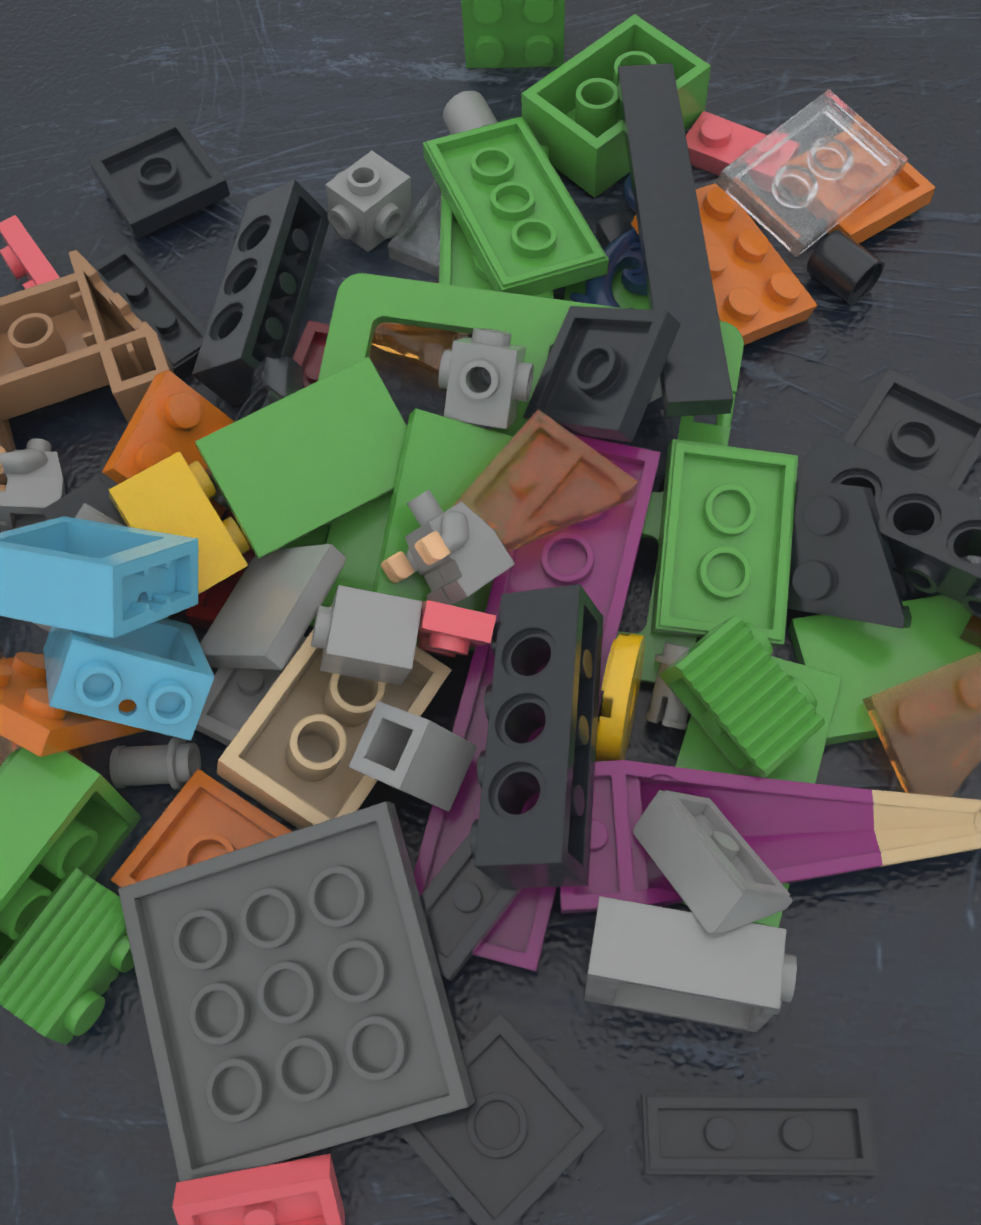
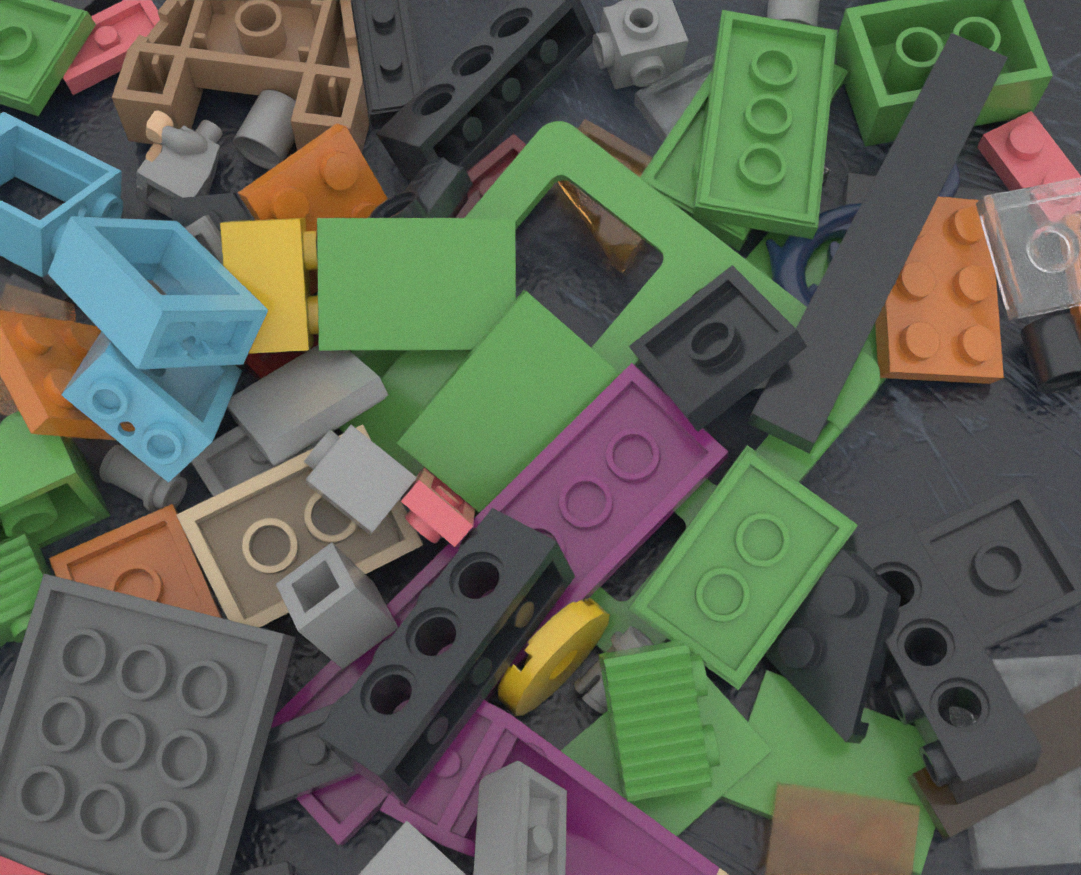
camera: 25 degrees right, 5 degrees up
(91, 422) = (267, 130): none -> light grey beam
(450, 550) = (480, 440): light grey piece -> none
(469, 395) = (610, 295): light grey brick -> none
(545, 484) = (595, 425): clear orange wing -> none

